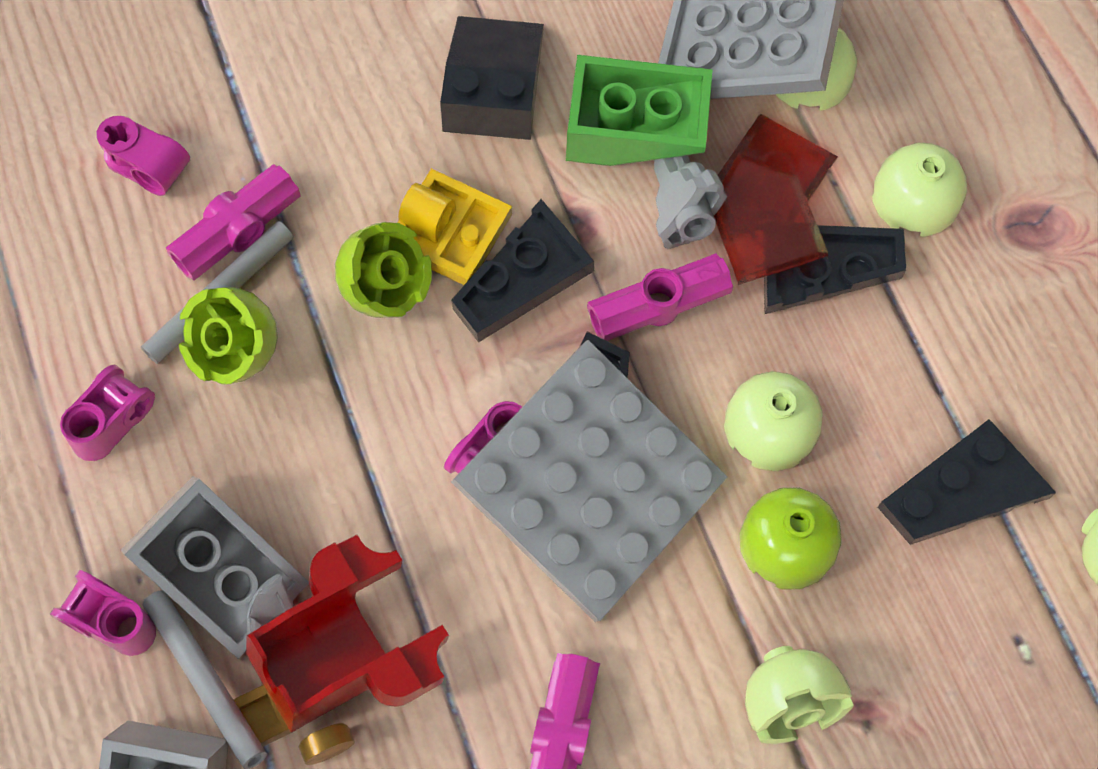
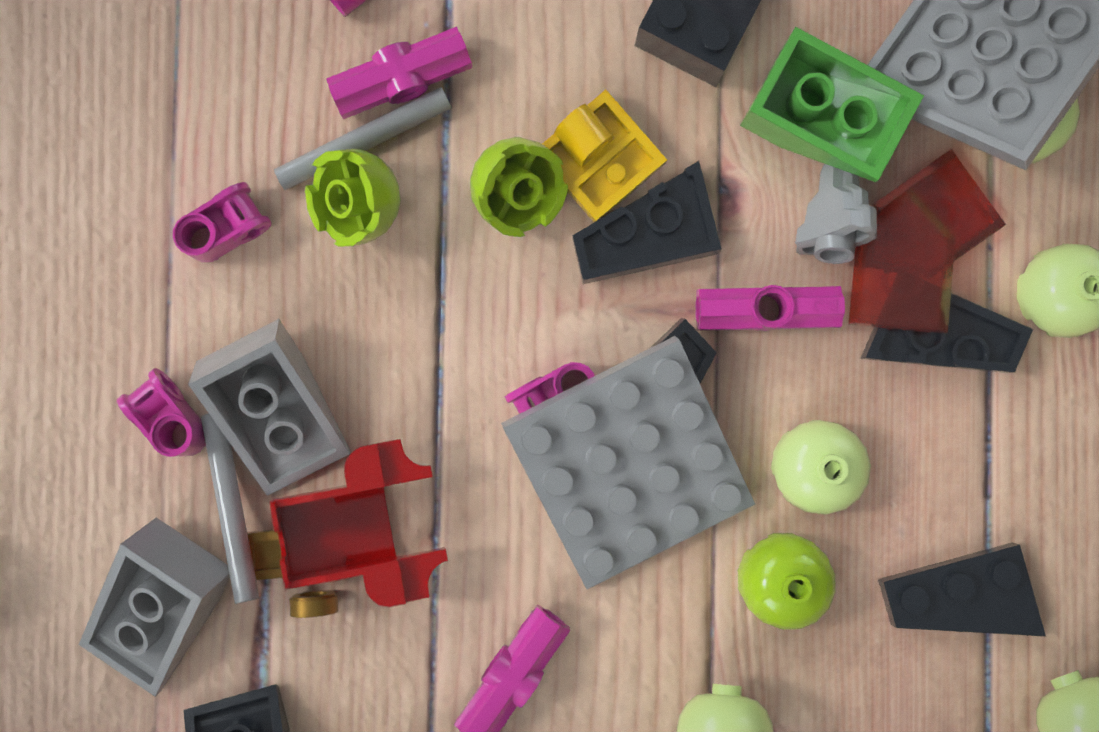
camera: 25 degrees right, 20 degrees up
(268, 603) = (306, 469): light grey tile -> none

